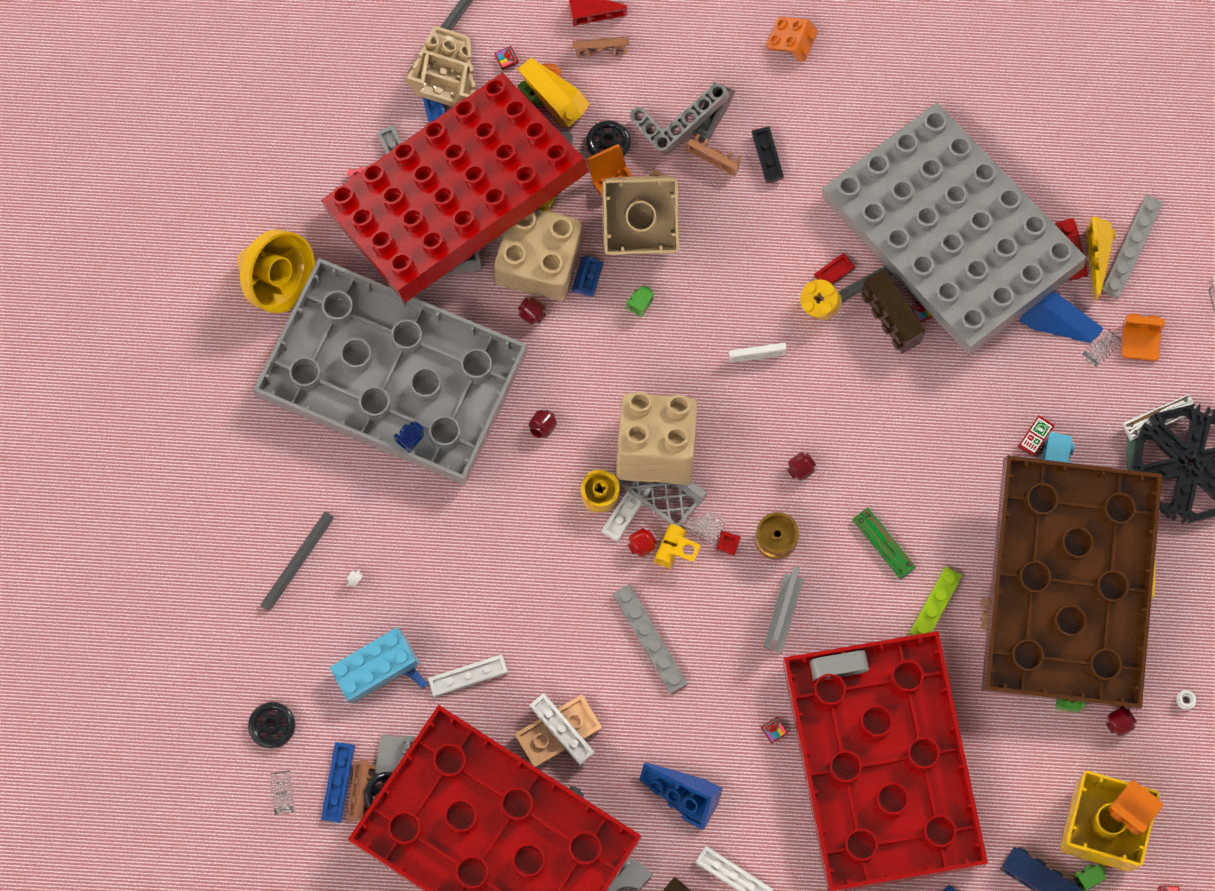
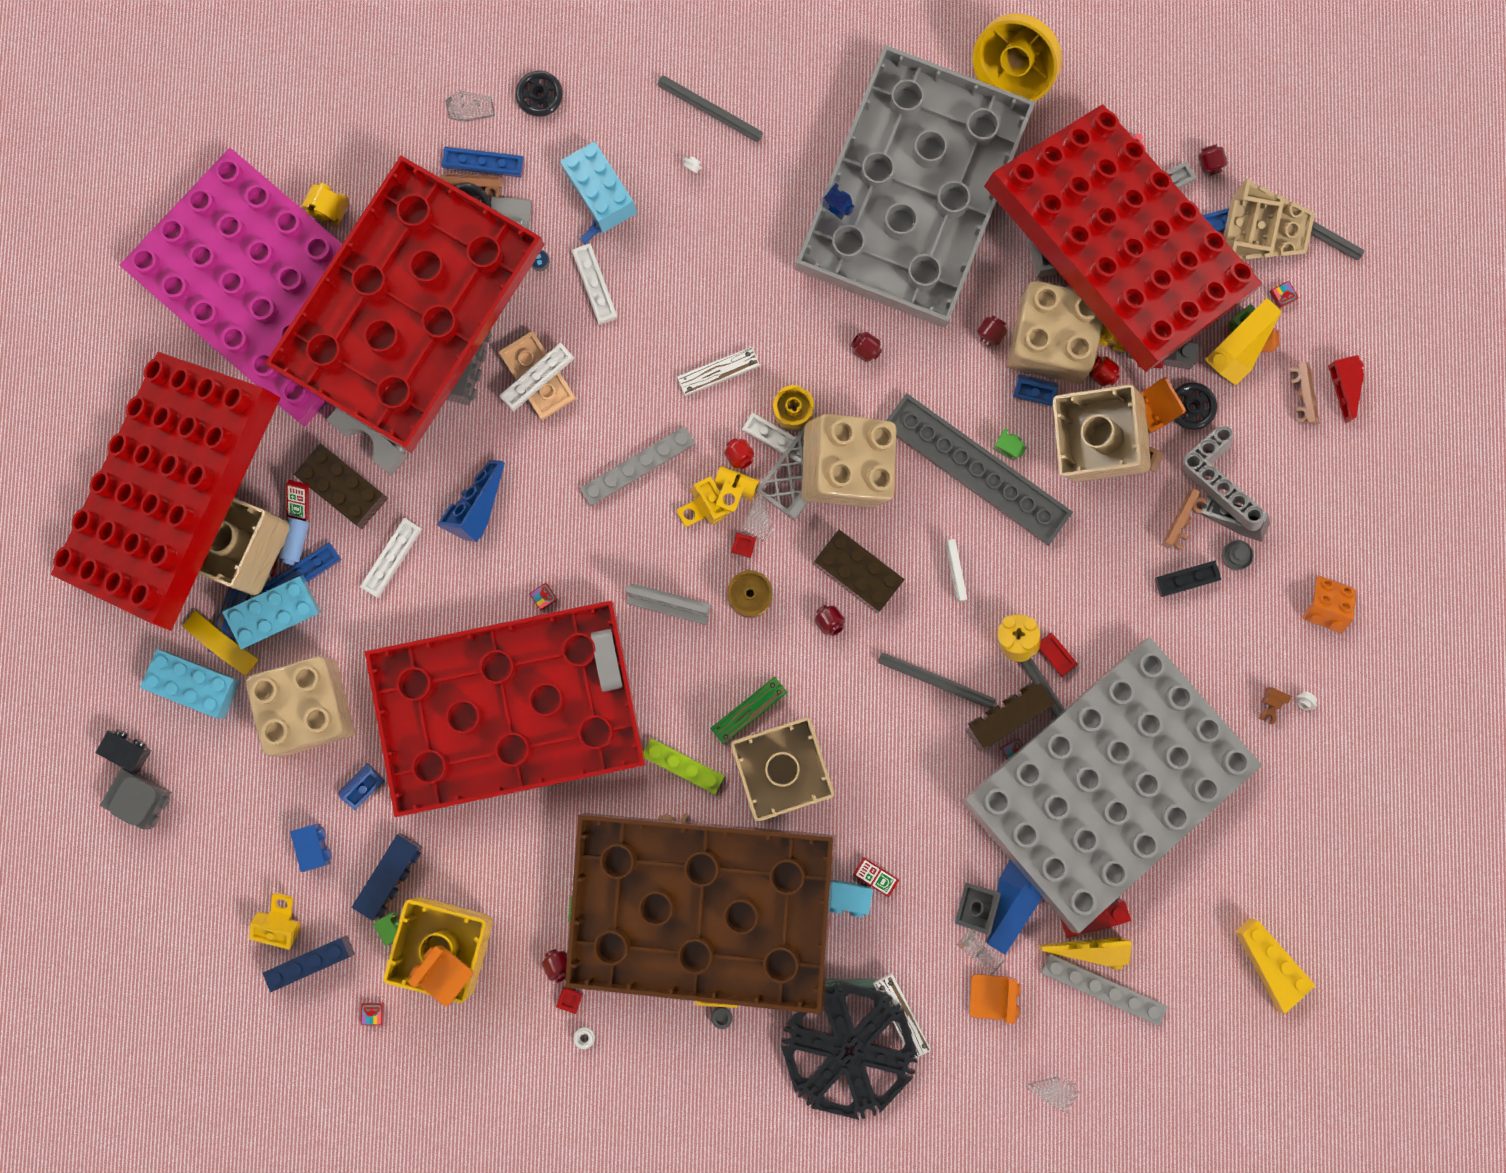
camera: 90 degrees right, 10 degrees up
(377, 109) = (1212, 159): none -> dark red head
(560, 561) = (718, 371): none -> white tile
(575, 210) = (1104, 371): none -> red head
(662, 330) = (979, 470): none -> dark grey plate
(689, 576) = (704, 505): none -> yellow piece
(746, 112) = (1237, 555): none -> dark grey plate
(756, 438) = (858, 571): none -> dark brown brick
(857, 375) = (936, 680): none -> dark grey axle
(878, 63) = (1306, 701): none -> white plate
(878, 89) = (1274, 700): none -> dark orange piece
(942, 507) = (782, 769): none -> tan brick
(1063, 347) = (977, 908): none -> dark grey slope
(1114, 101) = (1278, 971): none -> yellow wedge
(1151, 713) = (569, 1000): none -> red tile
(1164, 576) = (721, 1017): none -> dark grey tile

